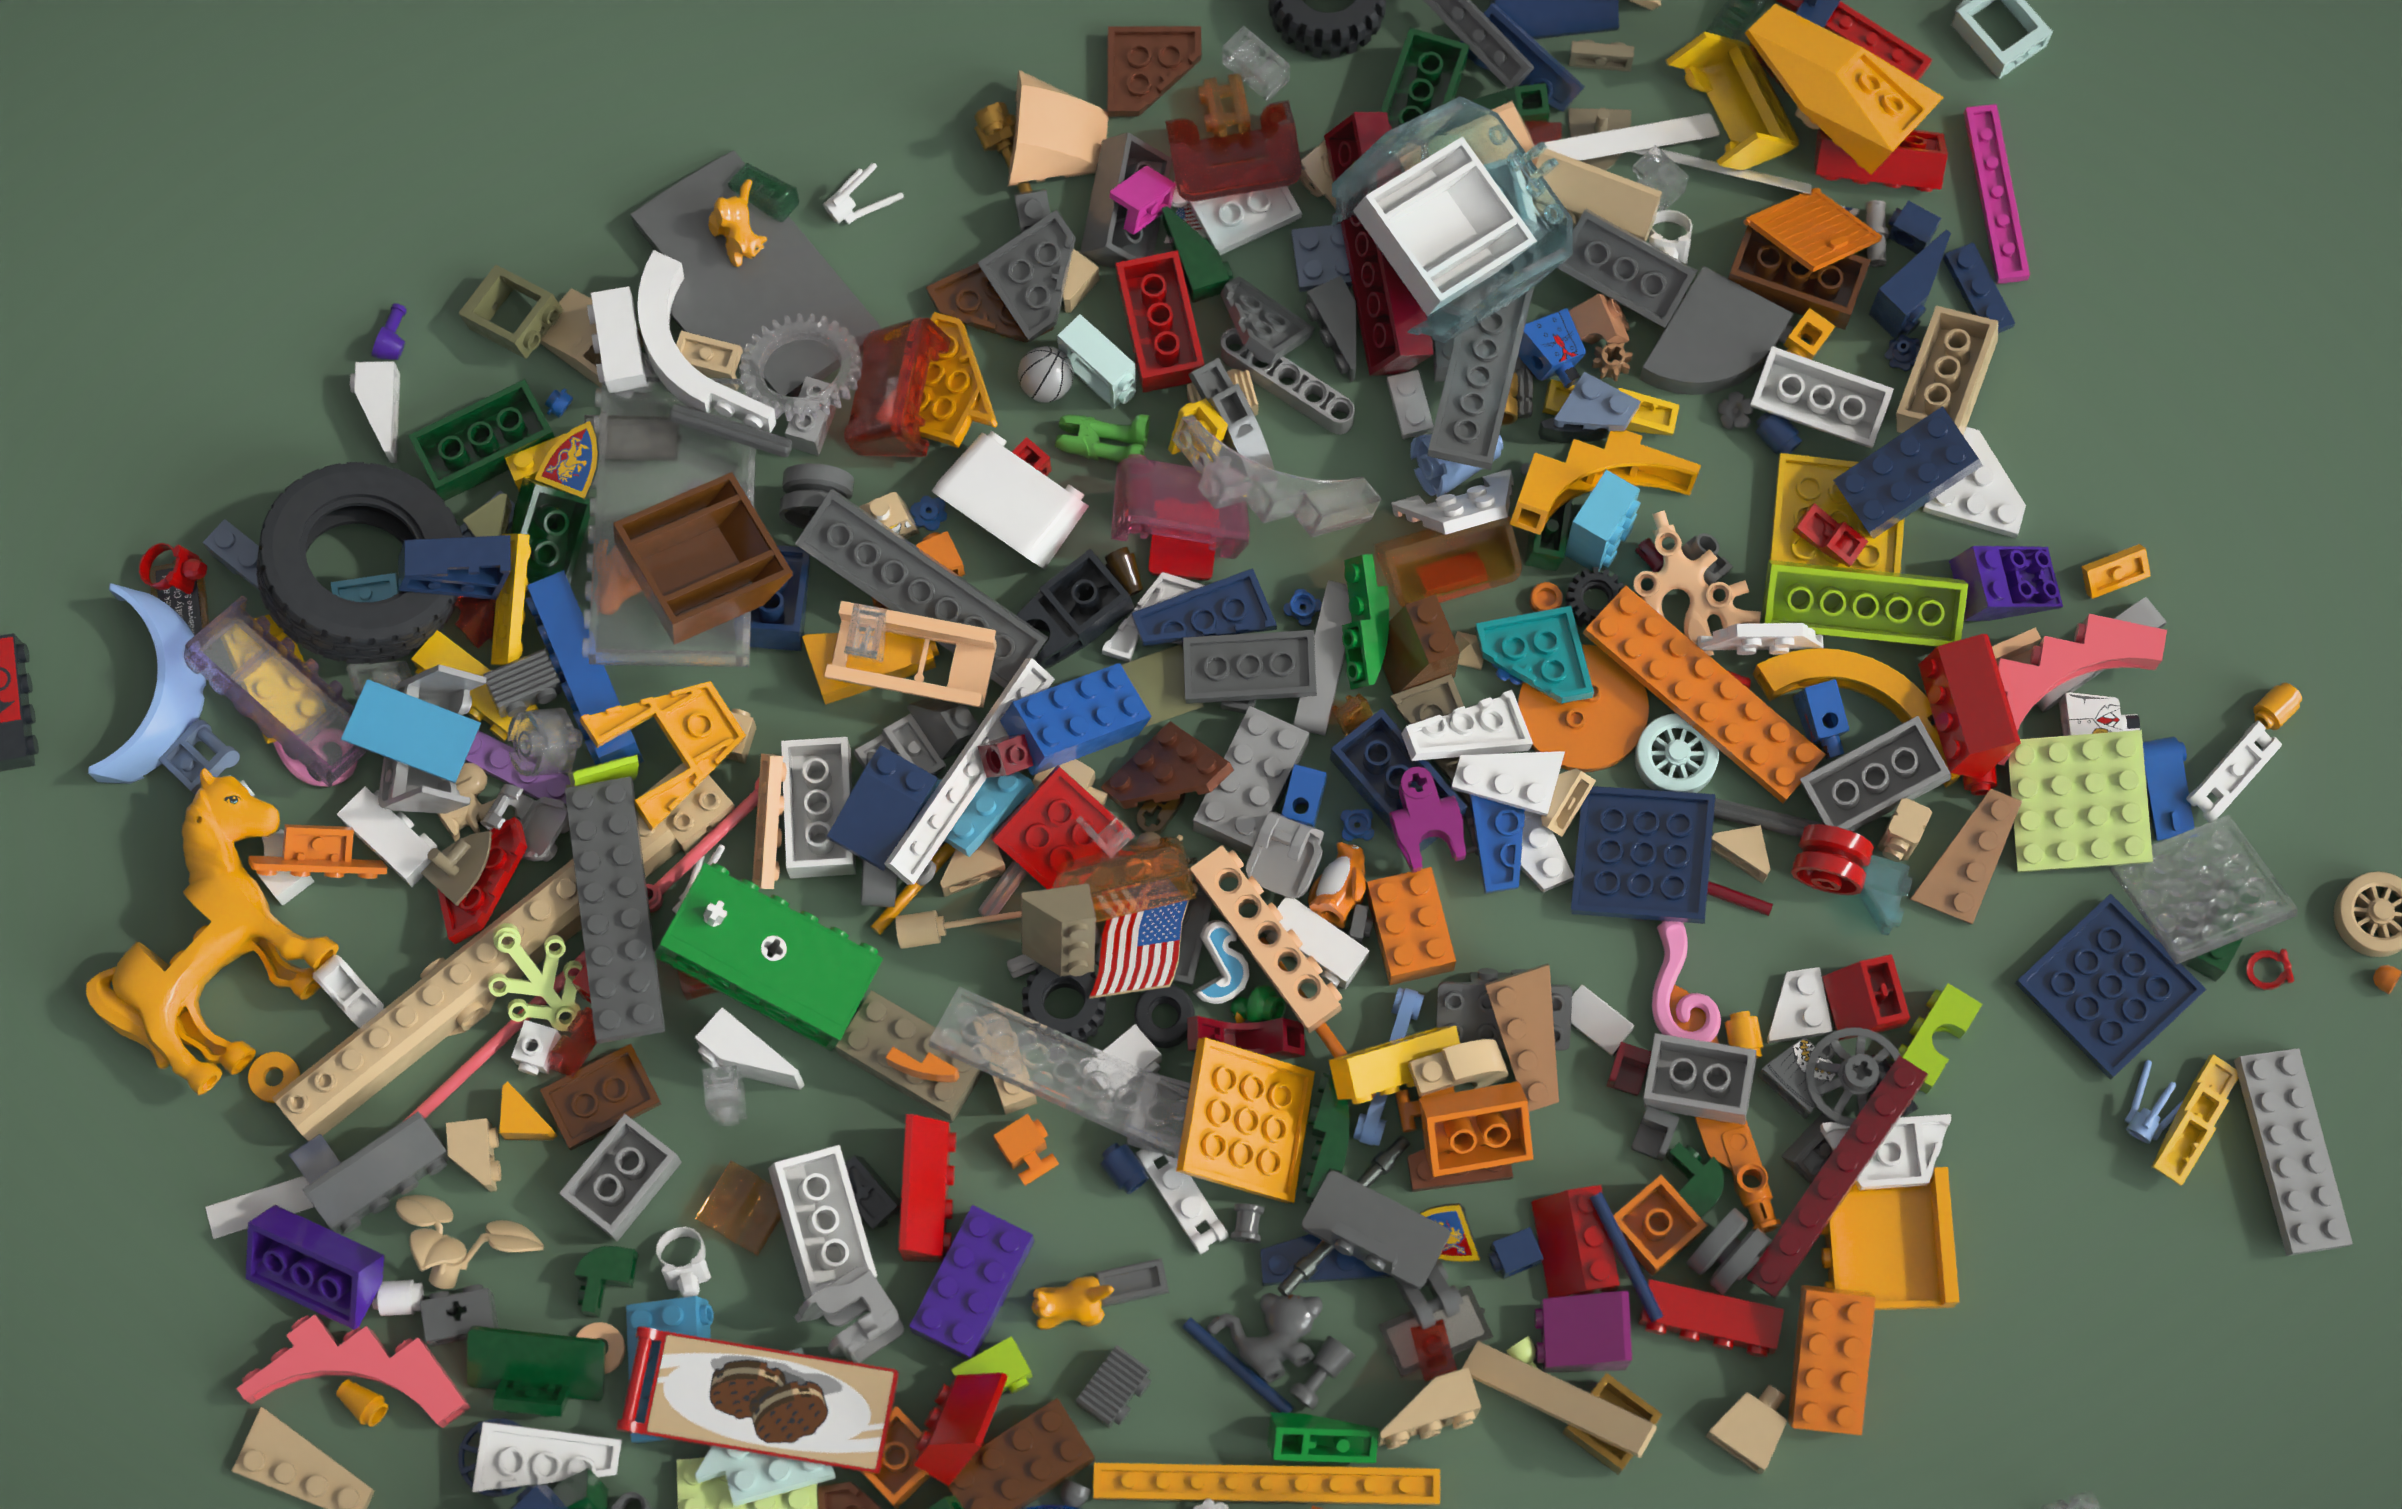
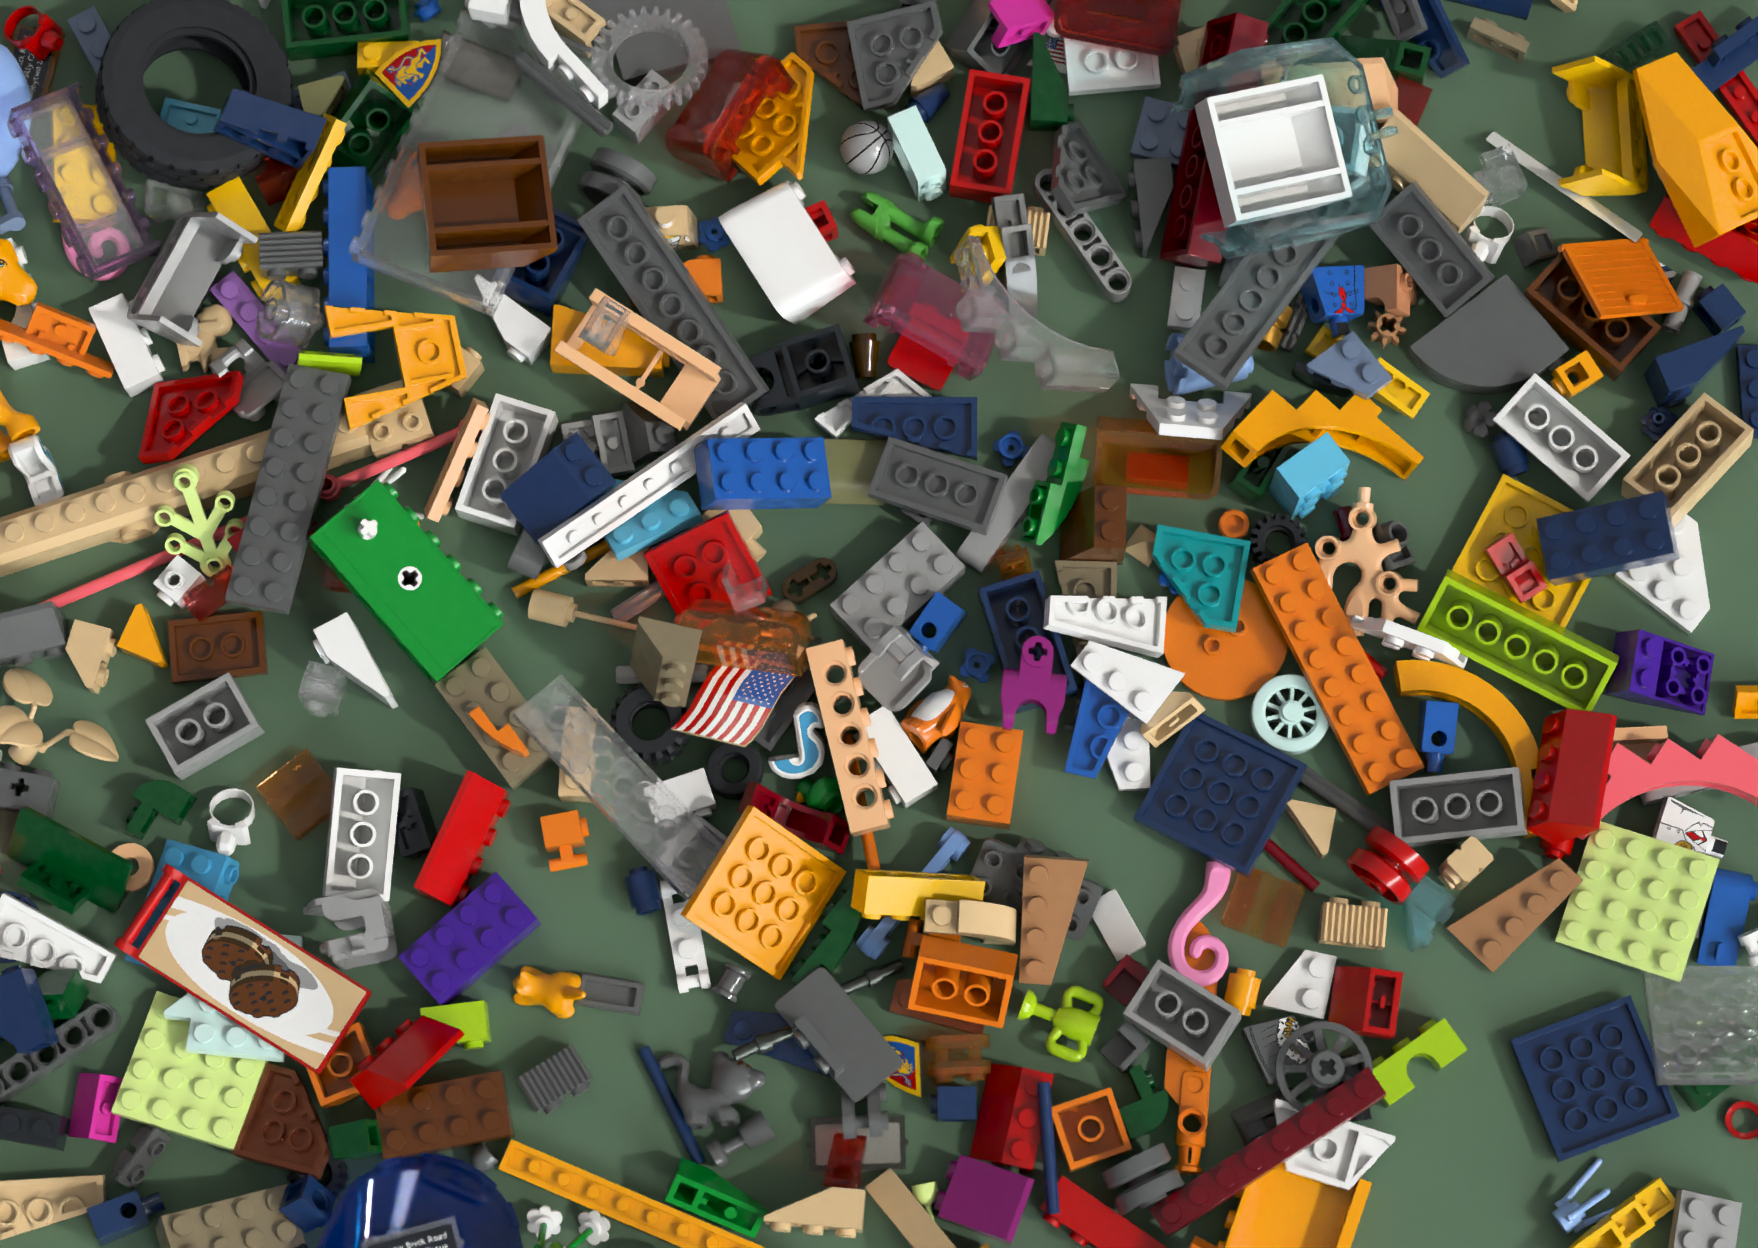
camera: 25 degrees right, 5 degrees up
(411, 731) = (177, 260): dark azure piece -> none
(459, 865) = (174, 395): dark tan shield -> none
(778, 675) = (521, 331): none -> white slope
(1005, 755) = (684, 483): dark red brick -> none
(1088, 306) = (929, 101): none -> dark blue cone
(1166, 768) = (826, 549): copper plate -> none
(1518, 1212) = (945, 1070): none -> clear orange brick
(1589, 1130) = (1067, 1021): none -> lime piece
(1591, 121) = (1466, 113): dark tan shield -> none
(1636, 137) = (1493, 128): white sticker -> none
(1717, 234) = (1535, 247): none -> dark grey slope
(1729, 948) = (1263, 907): none -> clear orange slope
(1821, 930) = (1352, 924): none -> tan brick

